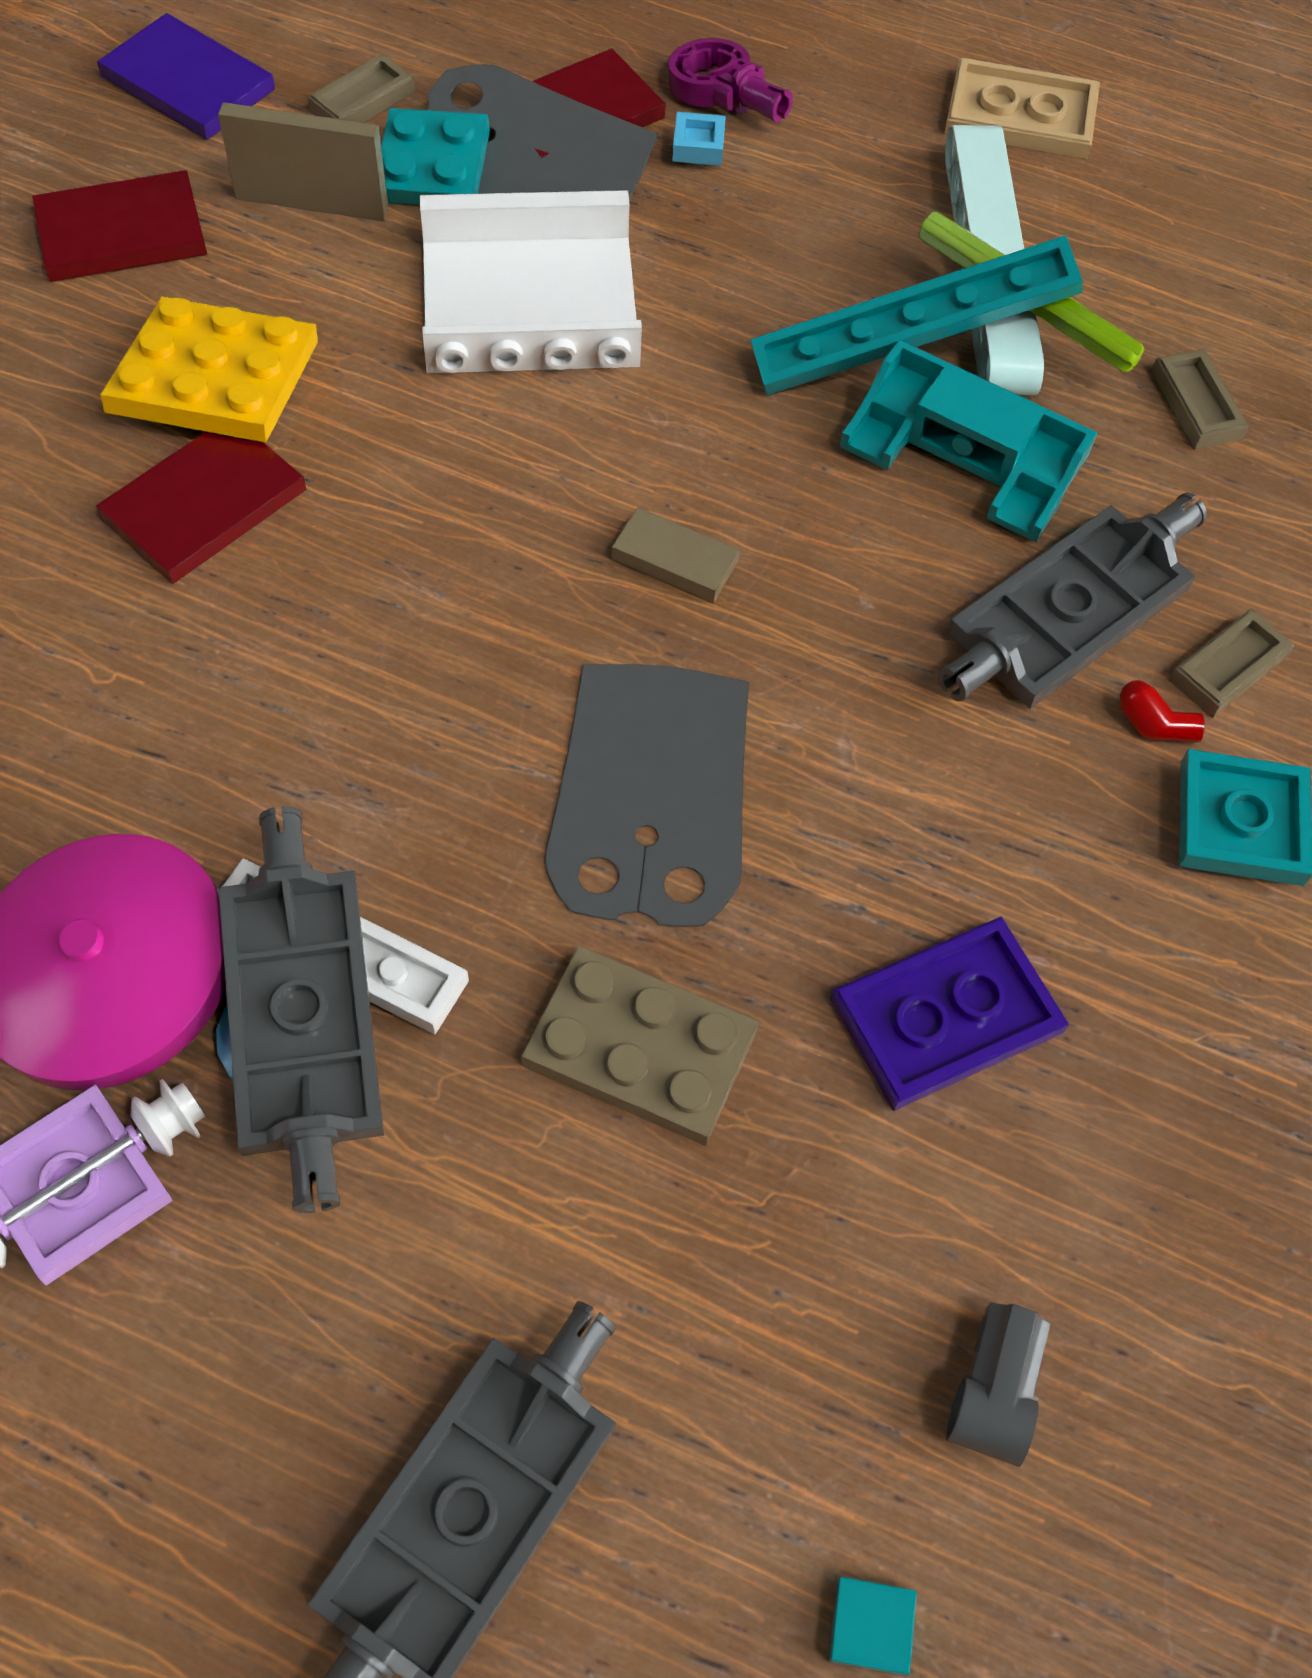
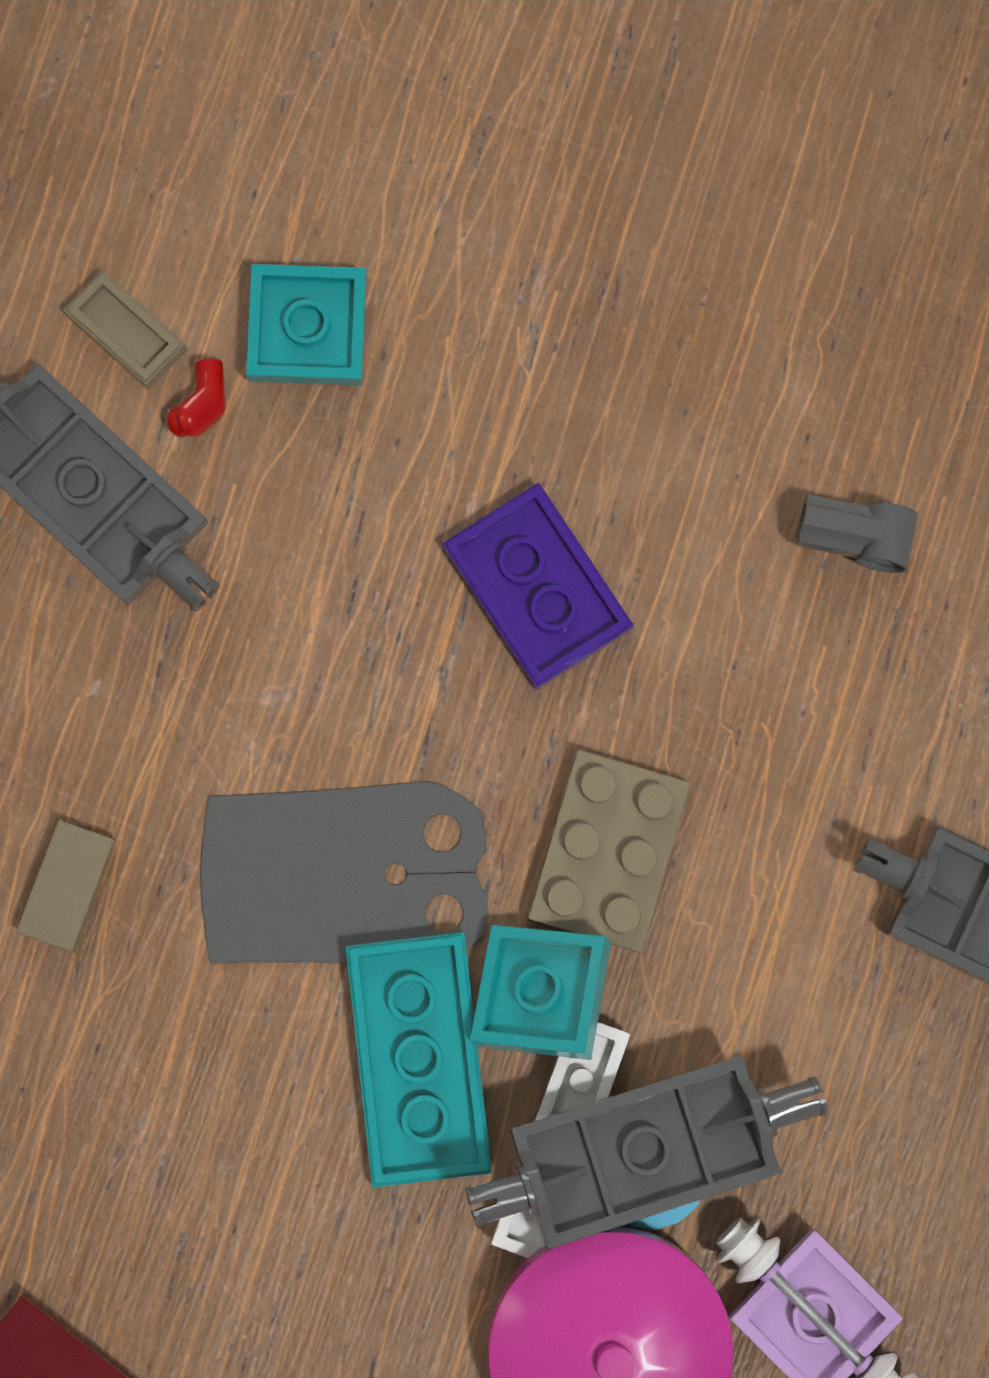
camera: 100 degrees left, 20 degrees up
(452, 827) = (418, 1060): none -> teal tile
(495, 937) = (541, 992): none -> teal plate

